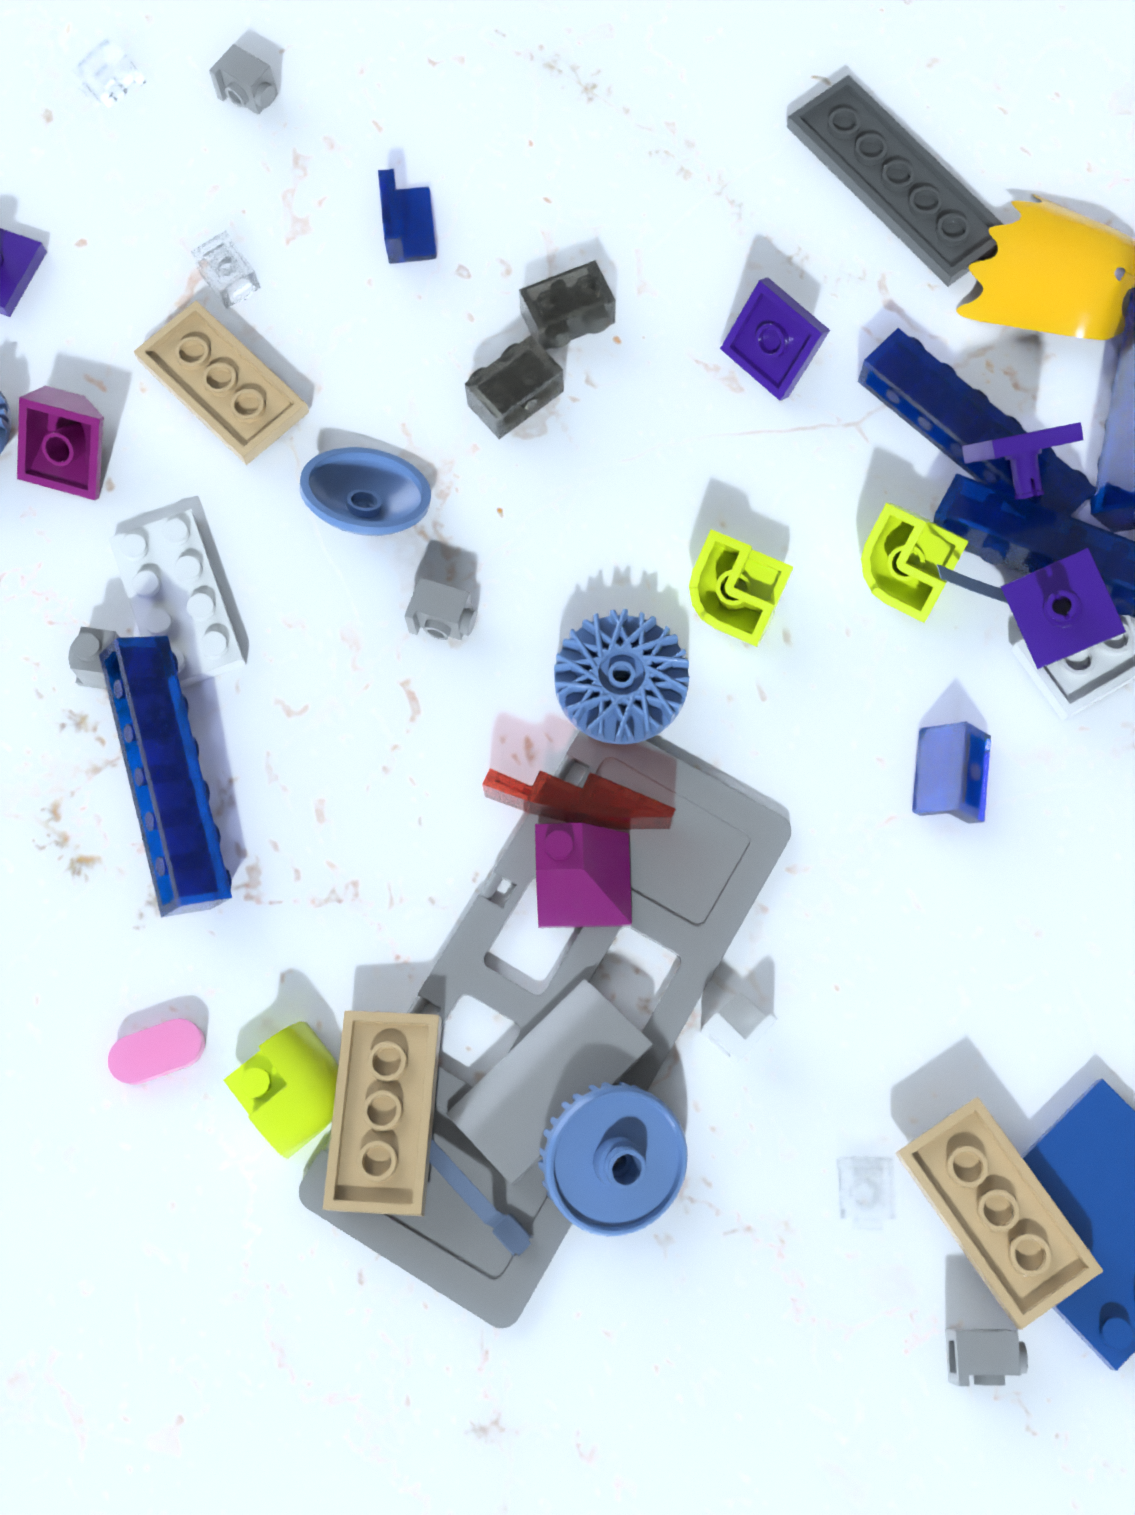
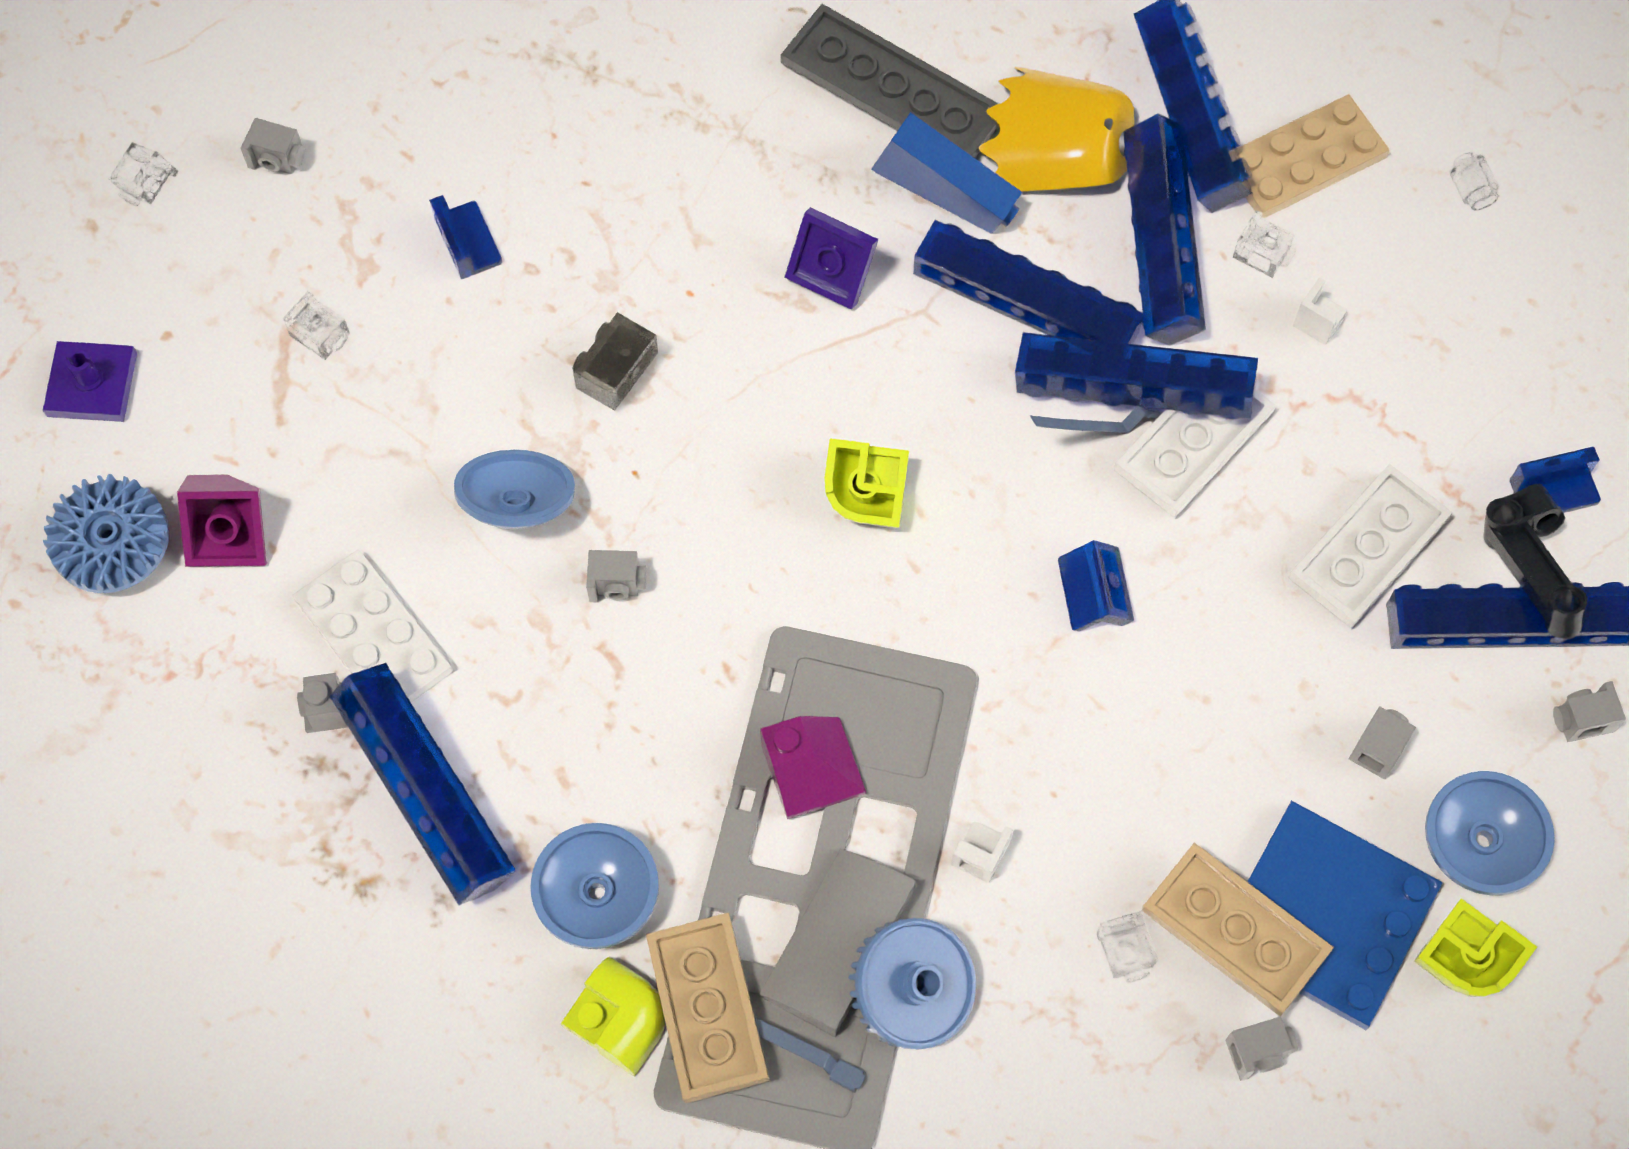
camera: 20 degrees left, 5 degrees down
(156, 1051) = (490, 1022): bright pink tile -> none
(221, 382) = (346, 428): tan plate -> none
(283, 921) = (588, 859): none -> medium blue dish
(568, 306) = (638, 276): clear smoke brick -> none
(597, 803) = (806, 697): clear red slope -> none
(627, 649) = (785, 562): medium blue wheel -> none
(904, 557) = (1000, 419): neon yellow brick -> none
(925, 285) = (947, 176): none -> blue slope
(1023, 456) = (1072, 300): dark purple tile -> none
(1063, 609) = (1145, 423): dark purple tile -> none

